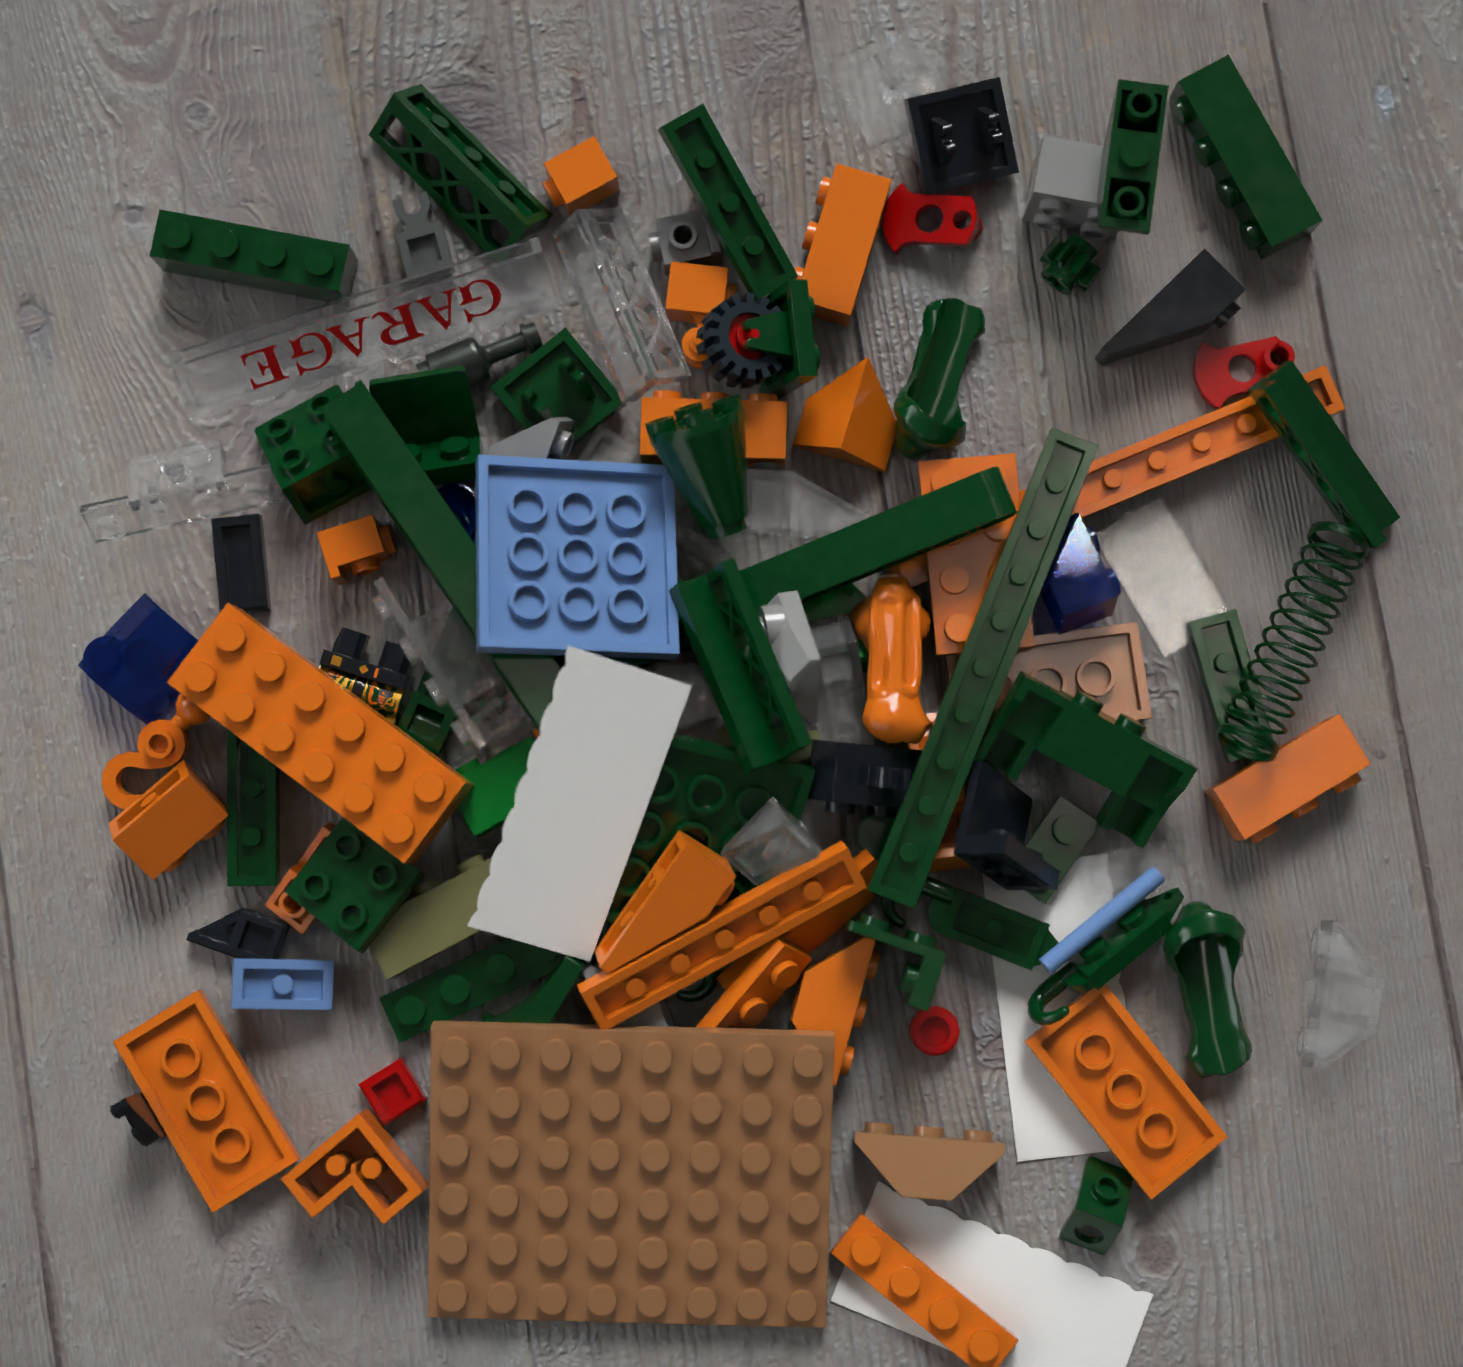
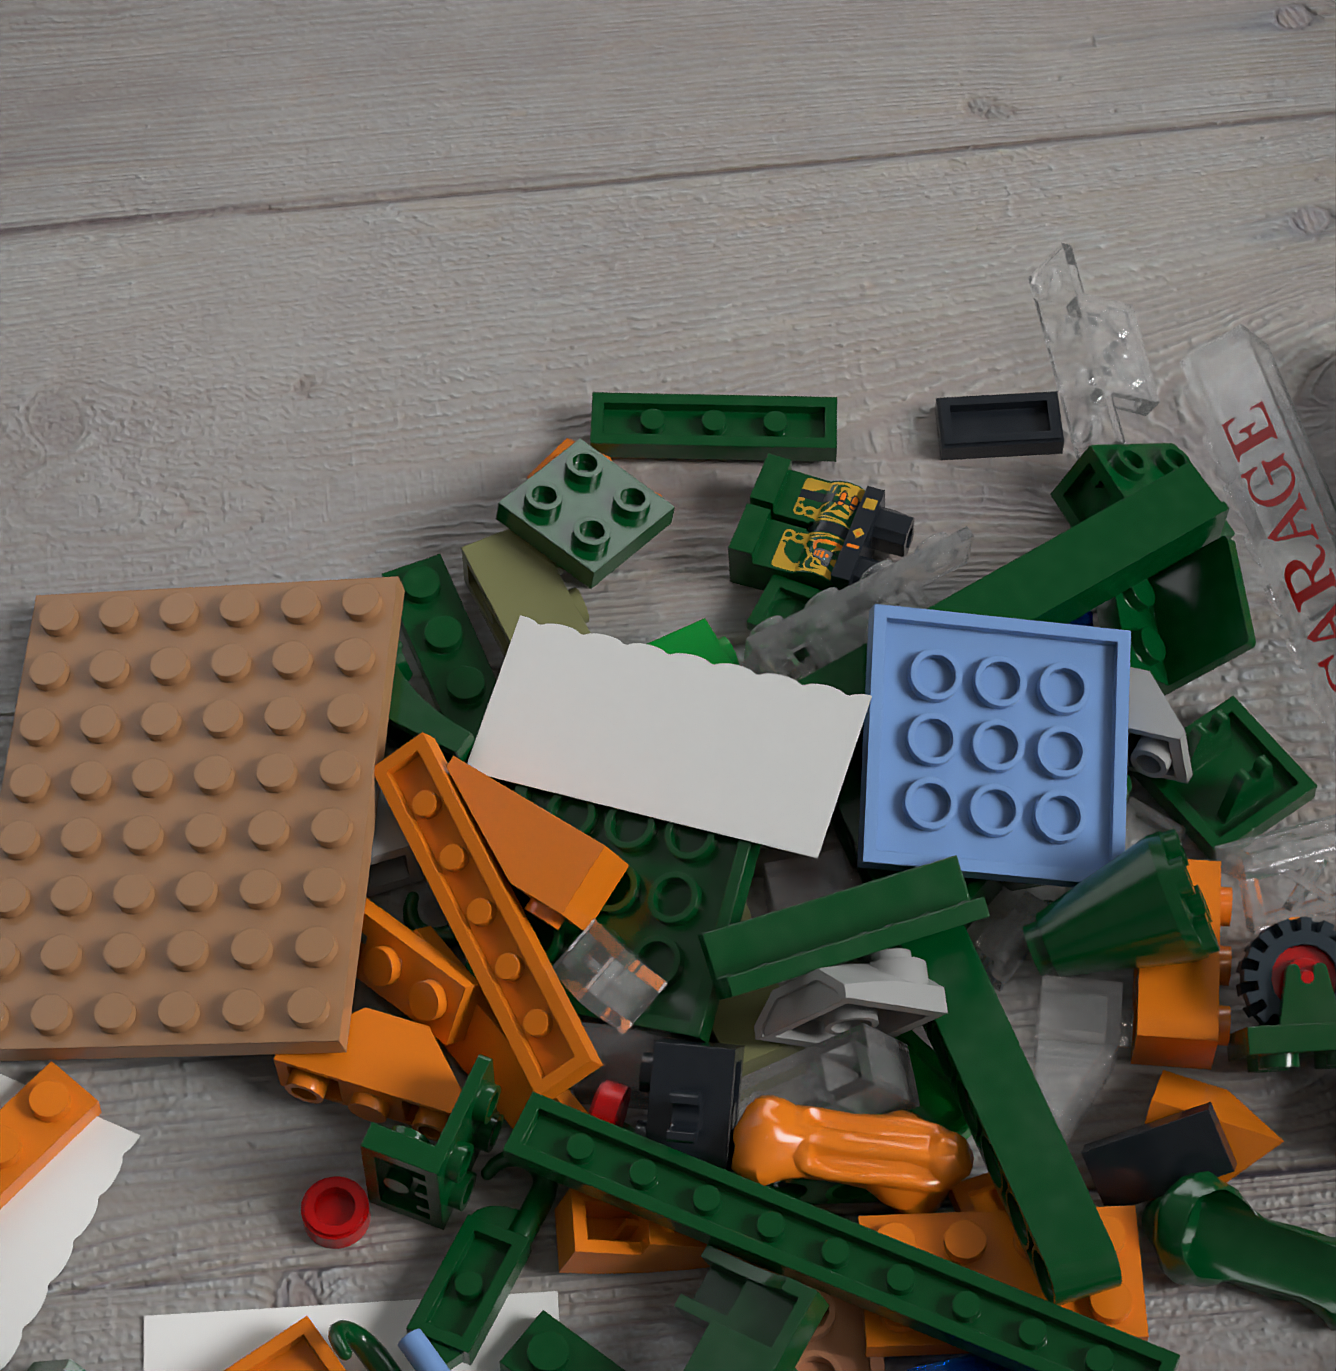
camera: 90 degrees right, 25 degrees down
(139, 659) = (876, 321): clear blue slope -> none
(141, 1118) = (320, 299): black tile -> none
(159, 745) = (772, 331): orange piece -> none
(168, 820) = (676, 331): orange brick -> none
(207, 1100) = (331, 371): orange plate -> none
(243, 935) = (528, 420): black tile -> none
(282, 984) = (466, 446): medium blue plate -> none
(320, 734) = (772, 474): orange brick -> none
(356, 547) = (1010, 526): orange brick -> none
(360, 1157) = (236, 516): orange brick -> none
(392, 1091) = (319, 560): red tile -> none
(479, 358) = (1267, 679): pearl dark grey piece -> none
(863, 836) = (611, 1102): none -> red tile
(876, 445) = (1156, 1155): none -> black tile
(927, 1162) = (158, 1179): medium nougat slope -> none
(995, 833) = (607, 1281): black bracket -> none

